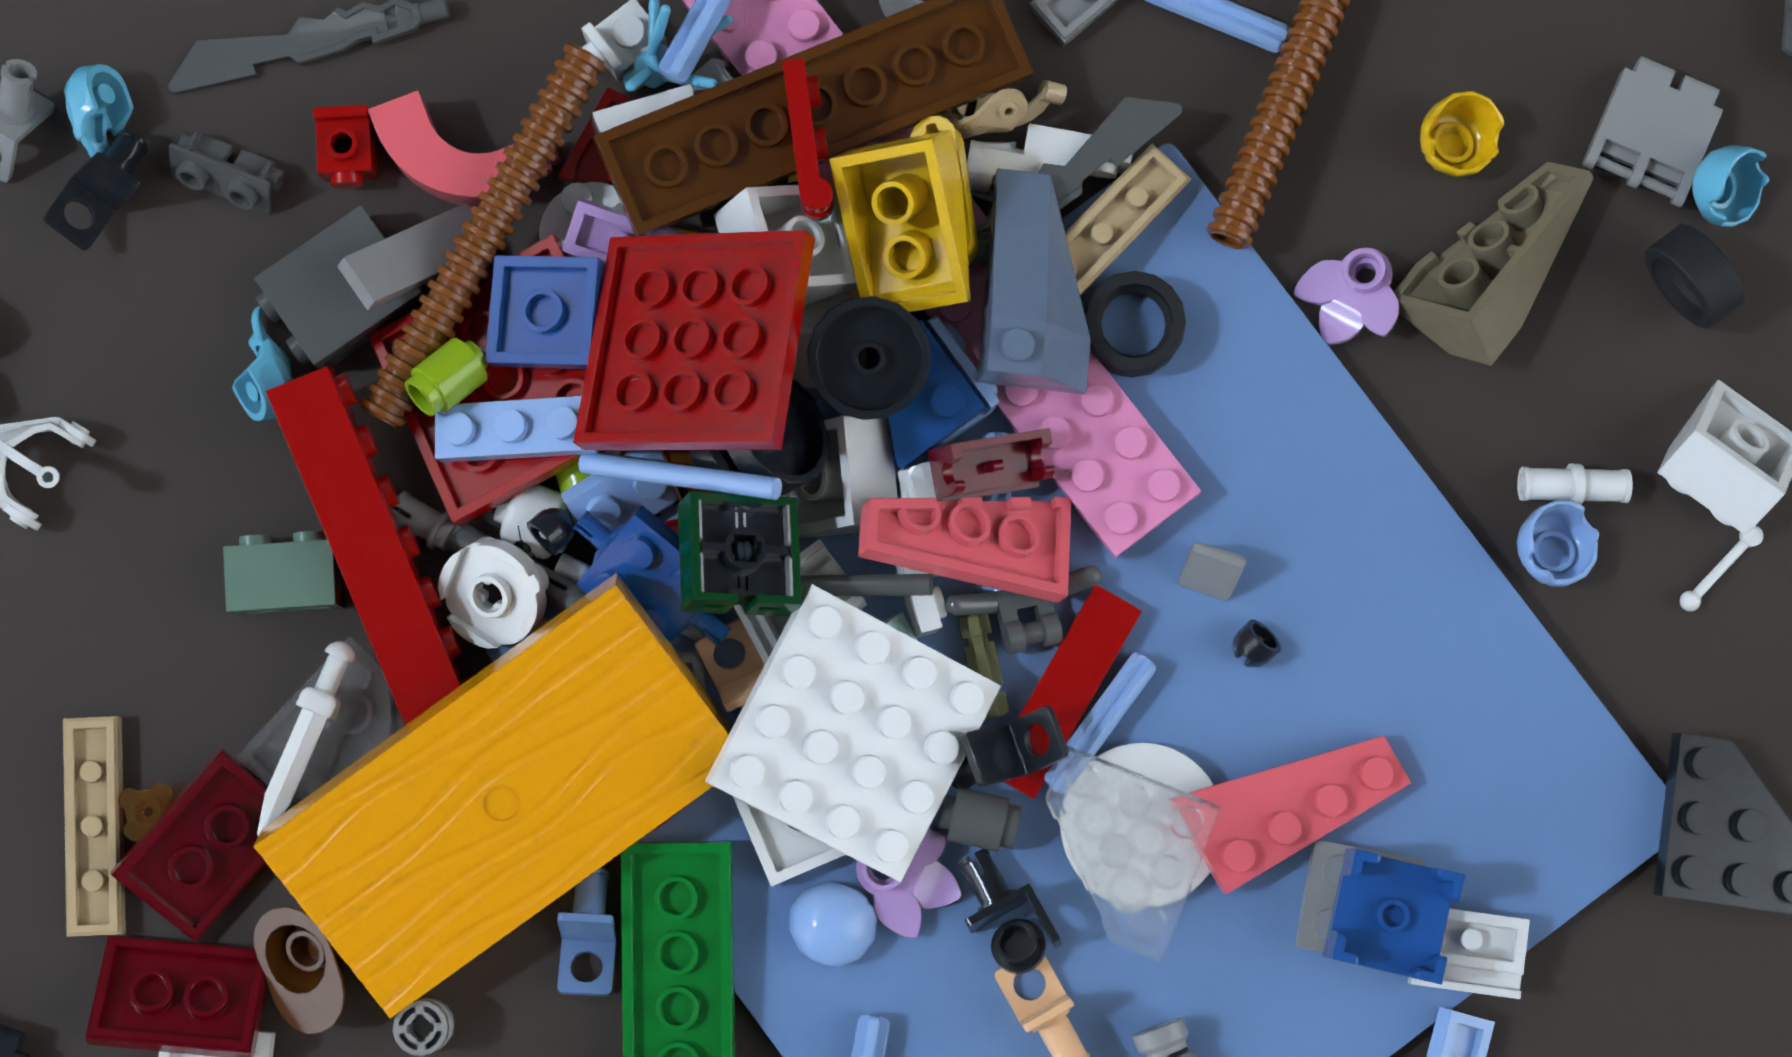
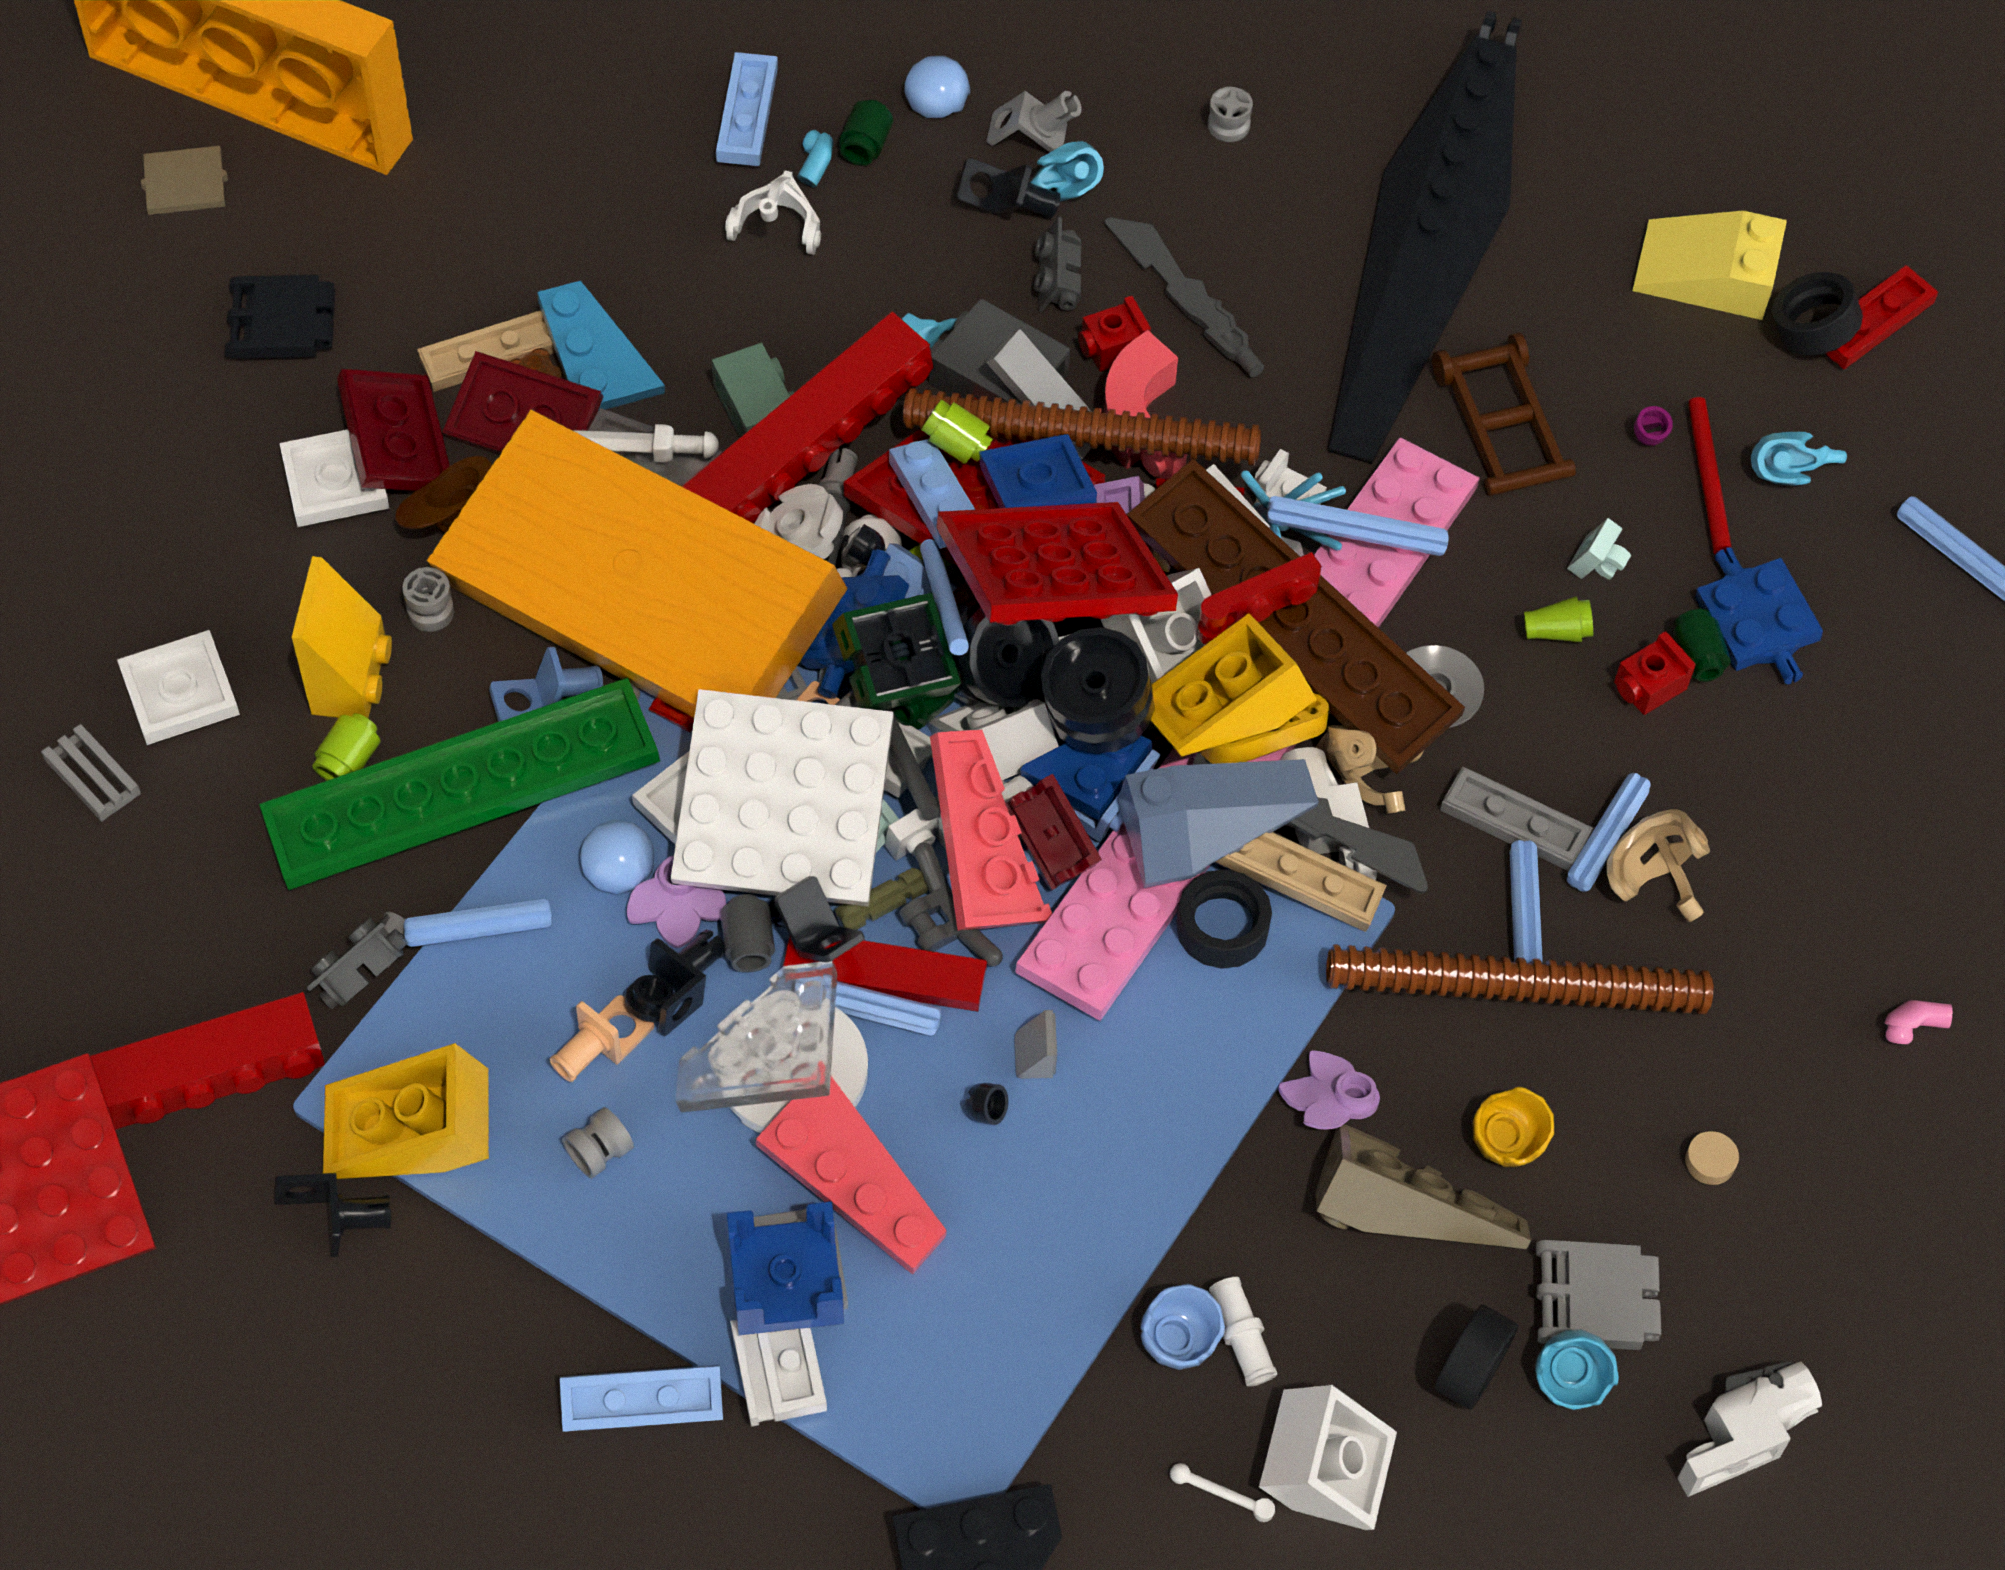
camera: 70 degrees right, 25 degrees down
(146, 738) = (594, 348): none -> dark azure wing

